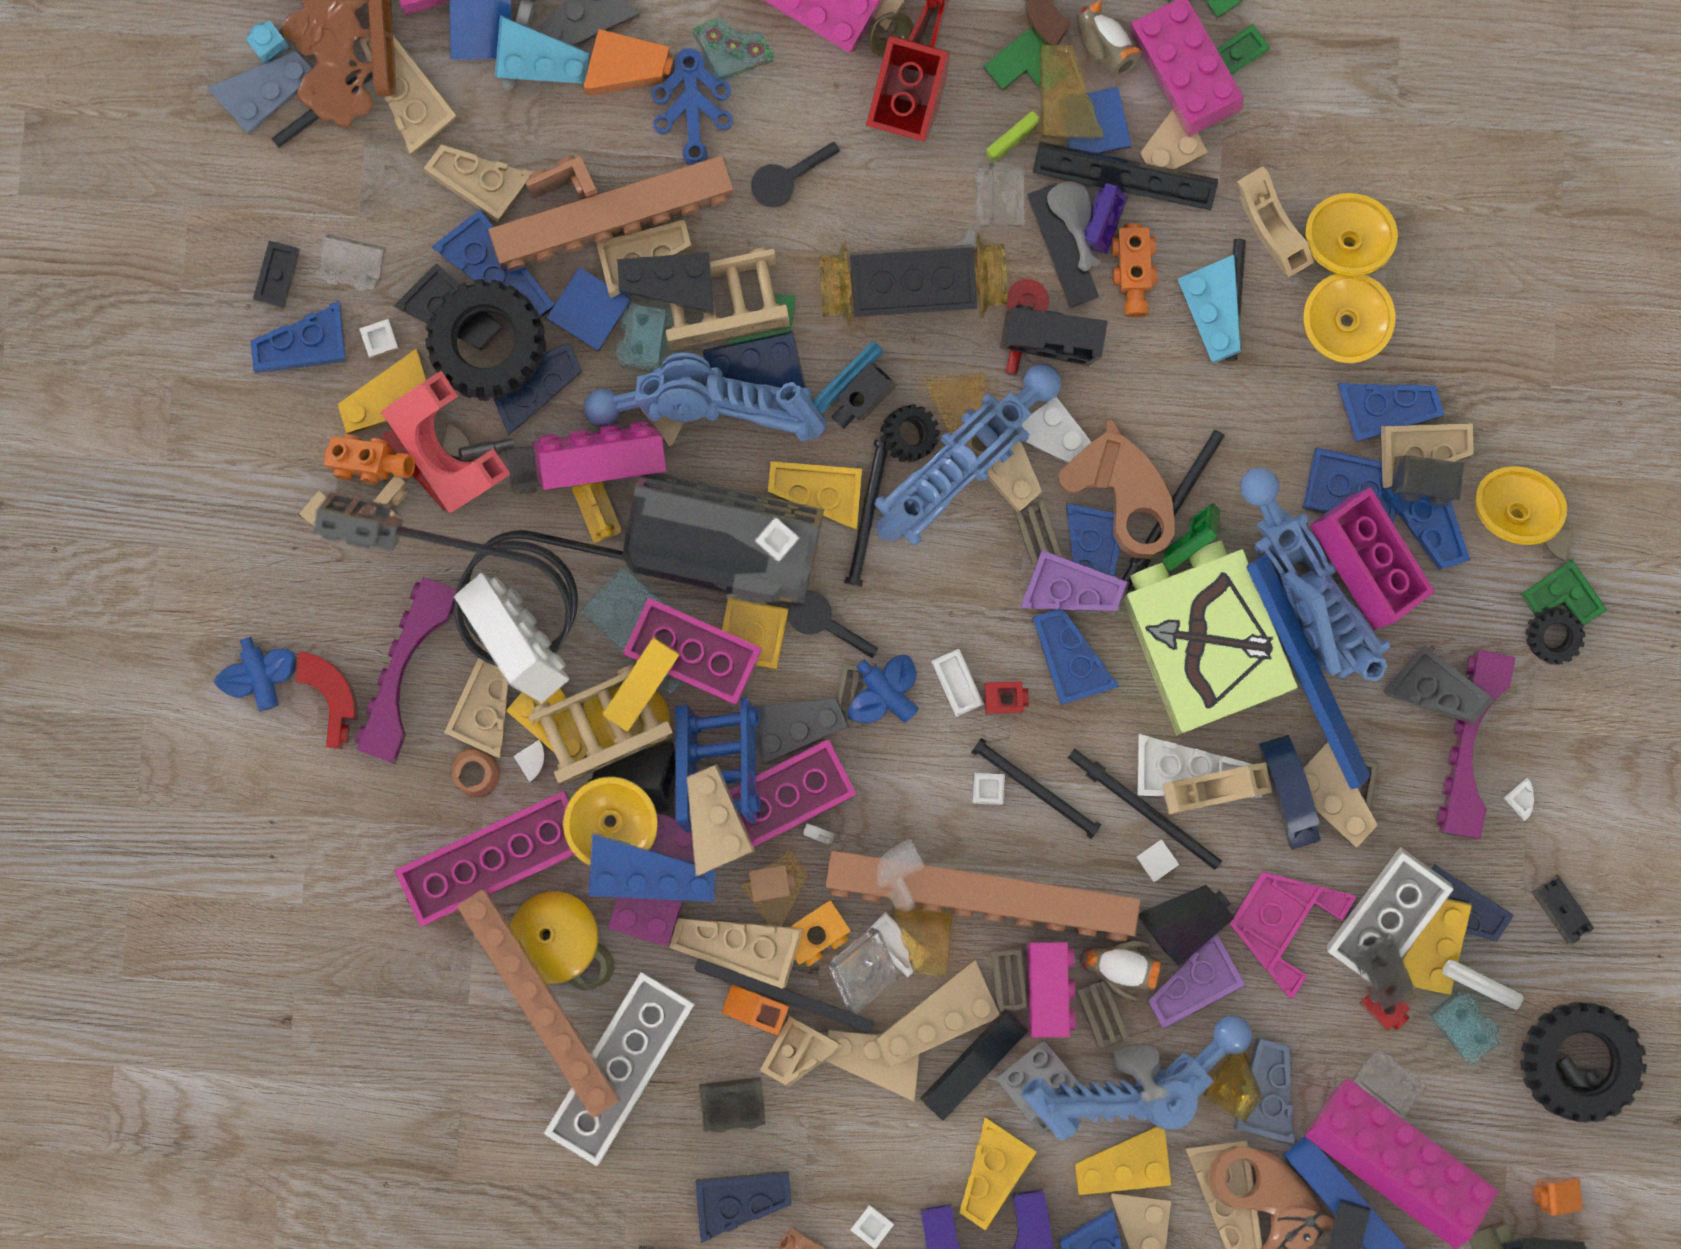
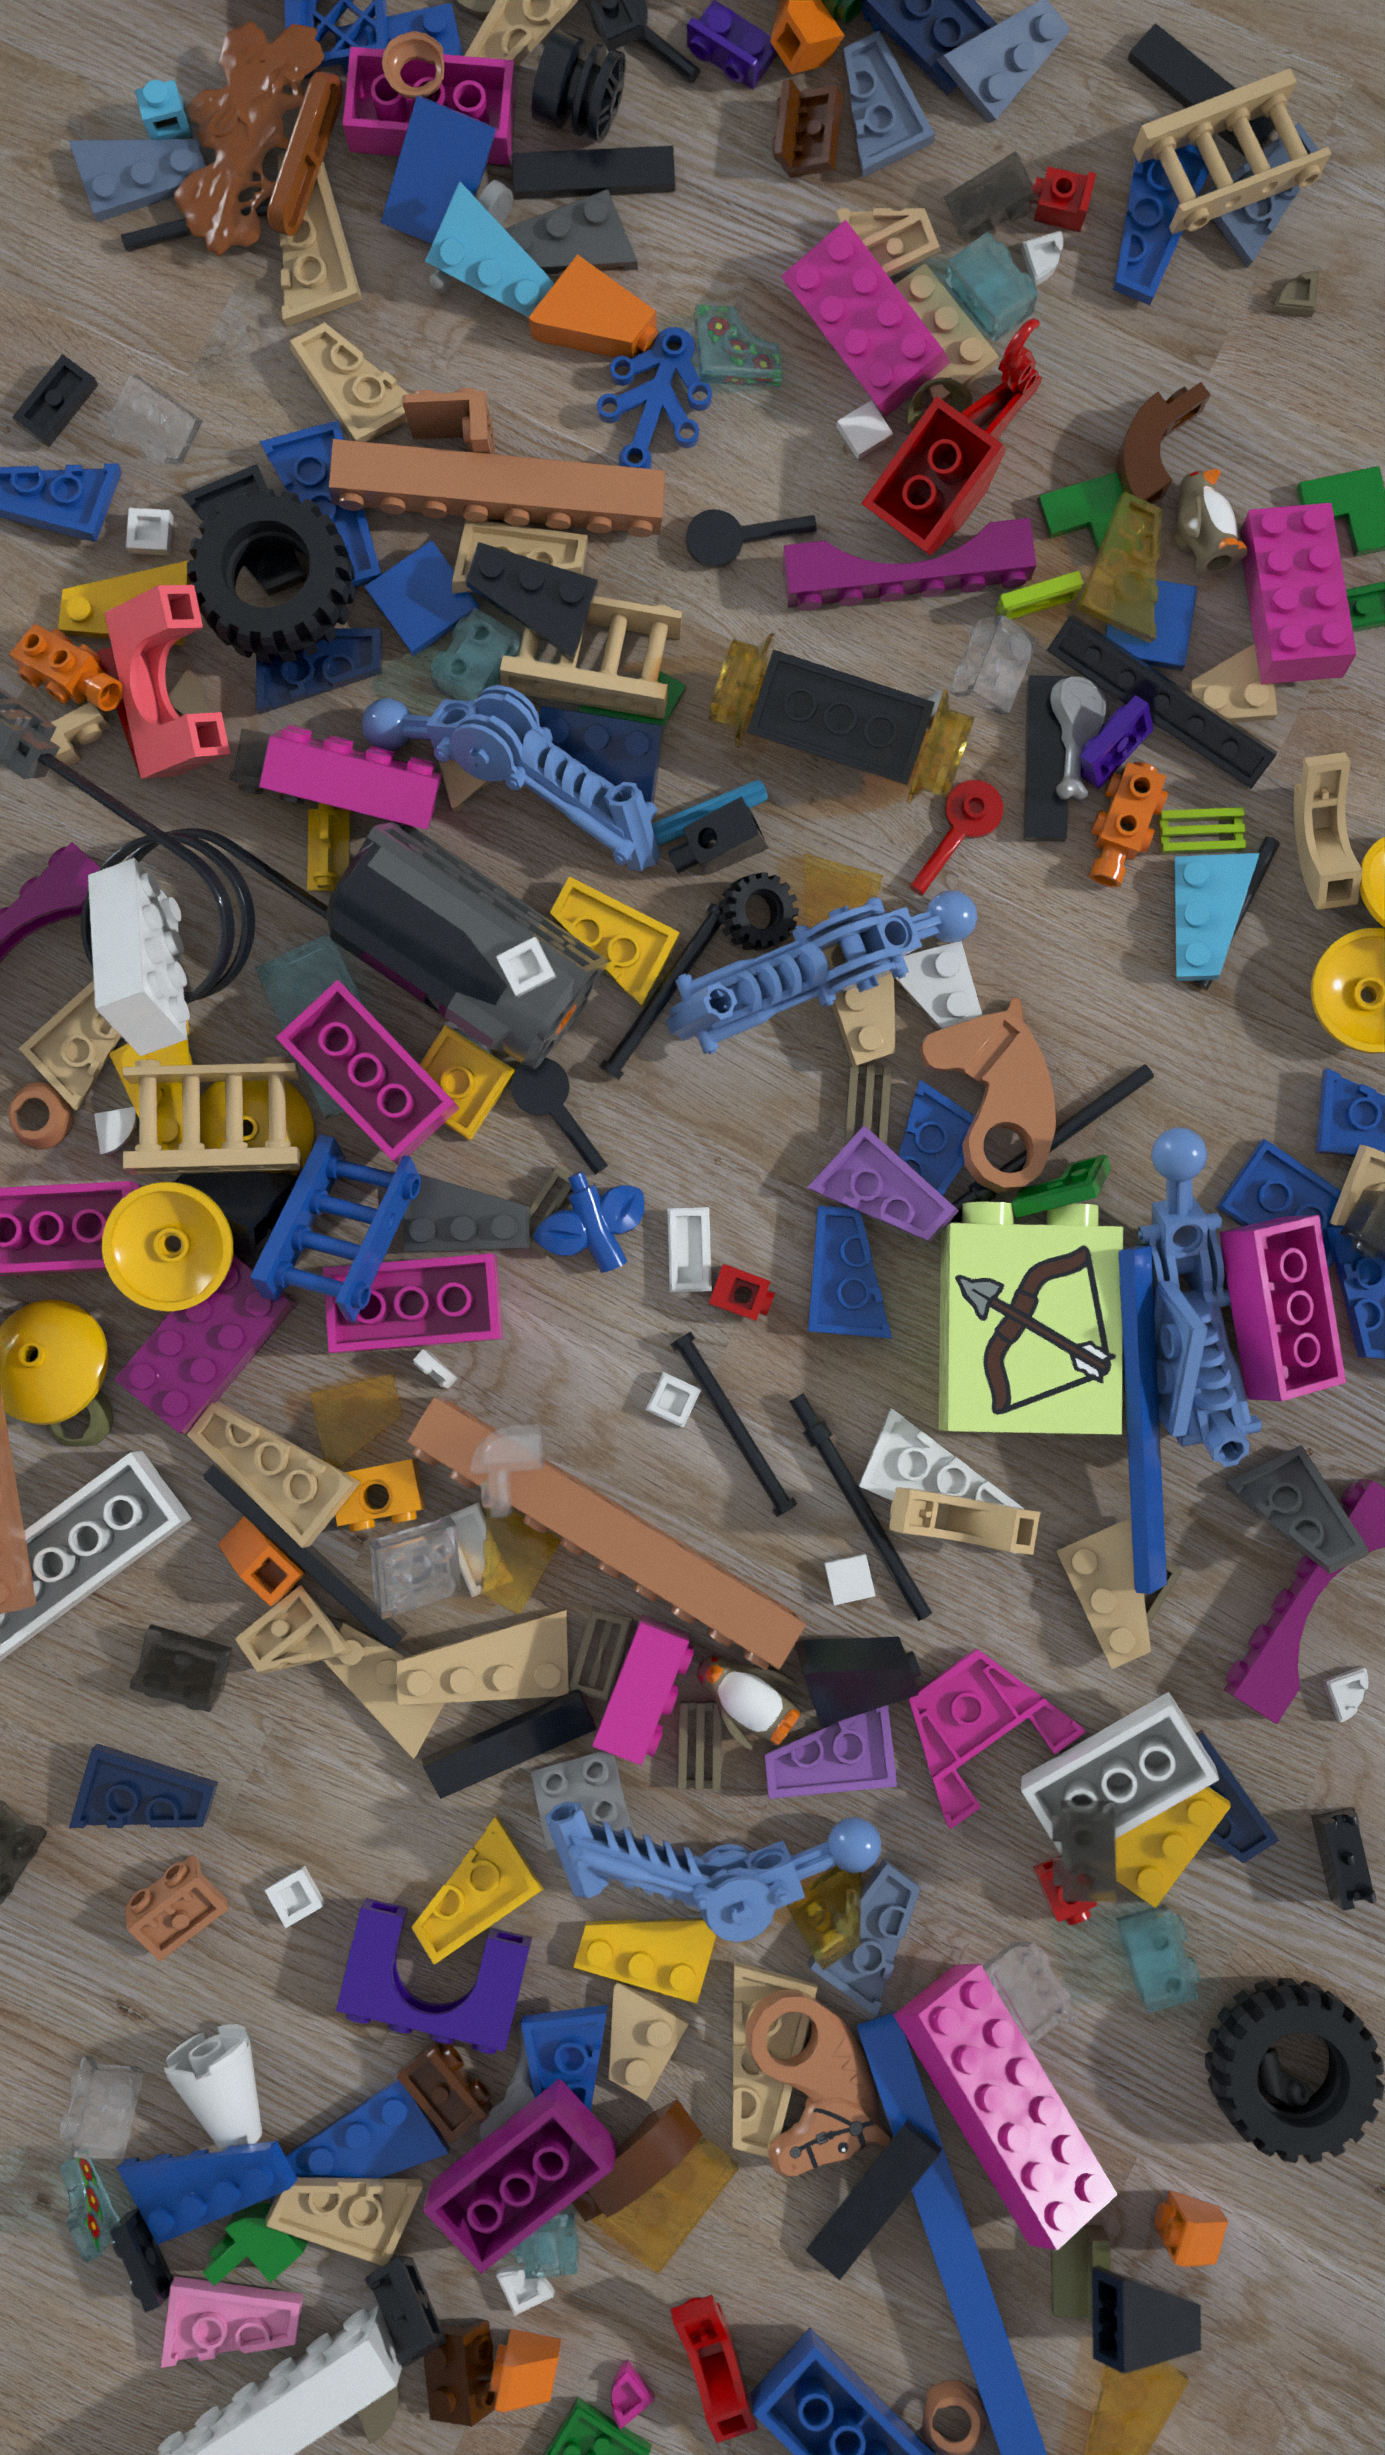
camera: 20 degrees right, 0 degrees up
(477, 450) = (230, 719): flat silver pin -> none
(635, 872) = (176, 1324): blue wing -> none
(641, 684) = (281, 1085): yellow tile -> none
(715, 822) = (299, 1299): tan wing -> none
(771, 883) = (345, 1407): medium nougat brick -> none
(844, 67) = (864, 430): none -> white tile
(858, 180) = (824, 574): none -> magenta arch
(1053, 335) = (991, 861): black wedge -> none
(1143, 1064) = (724, 1834): light grey piece -> none
(1212, 241) = (1237, 828): none -> lime tile
(1291, 791) = (1058, 1562): dark blue arch -> none
(1482, 984) = (1203, 1912): white axle -> none

